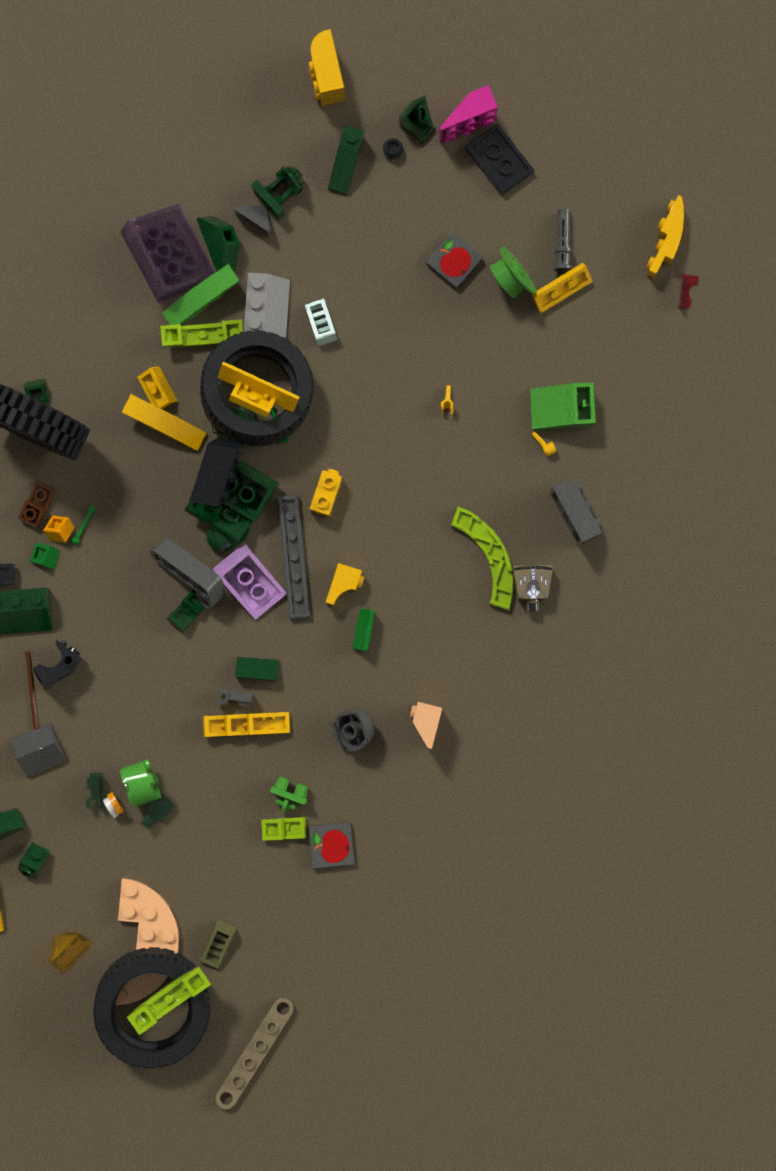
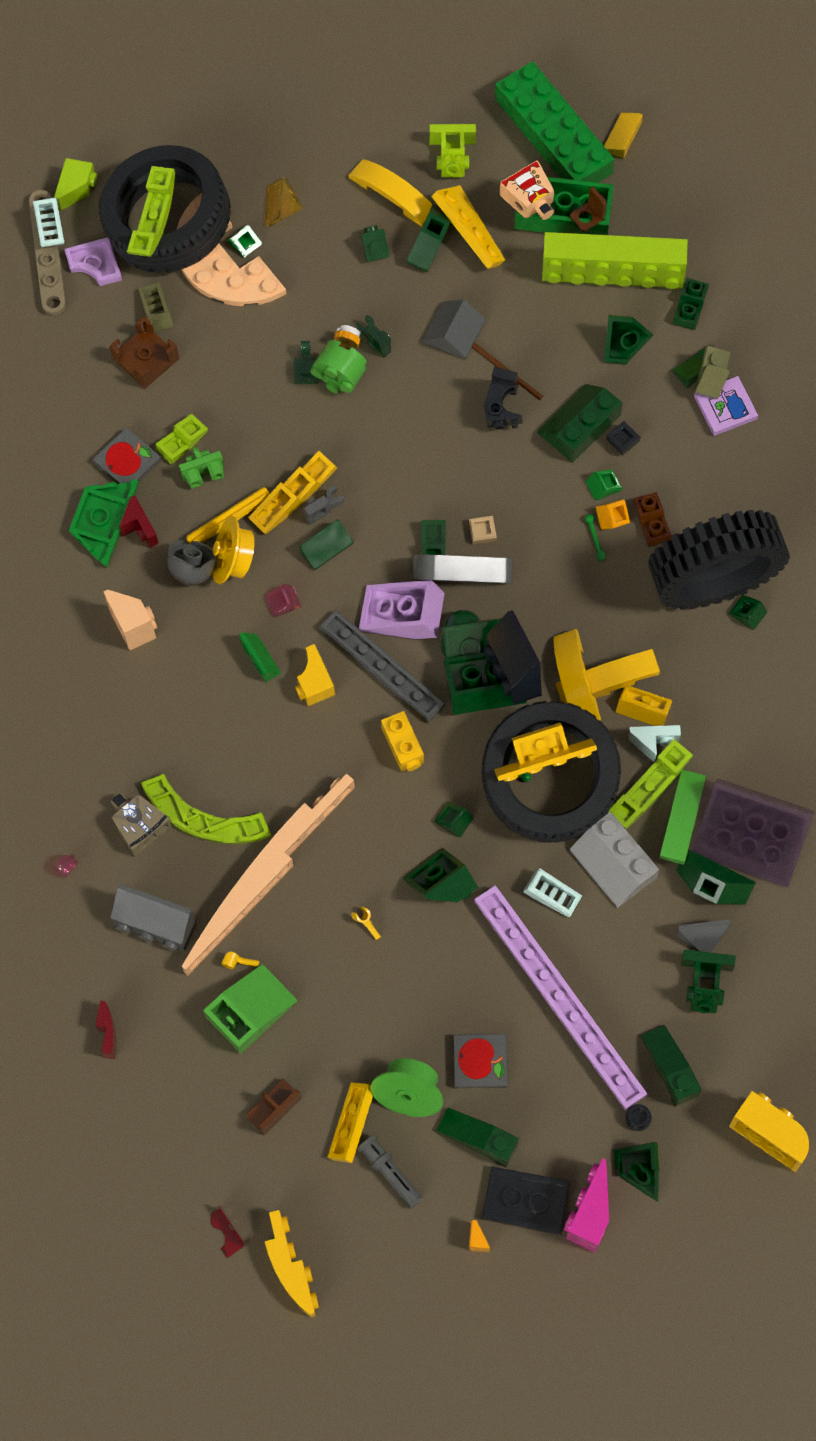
camera: 140 degrees right, 15 degrees down
(116, 942) = (244, 241): none -> slope
(149, 592) = (482, 530): none -> tan tile
(175, 363) = (647, 737): none -> light aqua slope
(183, 443) = (573, 672): none -> yellow slope
(191, 1090) = (75, 182): none -> lime slope
(227, 1018) = (96, 260): none -> lavender tile
(234, 1089) = (43, 205): none -> light aqua slope
(255, 912) = (145, 354): none -> reddish brown panel
(301, 744) = (238, 510): none -> yellow axle
(316, 655) = (283, 600): none -> clear pink slope
(321, 711) = (233, 551): none -> yellow wheel
(338, 420) = (454, 819): none -> dark green slope
(363, 796) = (136, 520): none -> dark red slope
(374, 256) = (560, 998): none -> lavender plate
(381, 386) = (442, 878): none -> dark green slope
(382, 815) = (99, 518): none -> green wing
(479, 484) = (266, 870): none -> light nougat slope
(494, 215) = (479, 1136): none -> dark green slope
(548, 160) = (477, 1239): none -> light orange slope
(598, 337) = (273, 1106): none -> reddish brown panel
(599, 595) = (66, 865): none -> clear pink plate
(657, 472) = (106, 1024): none -> dark red slope

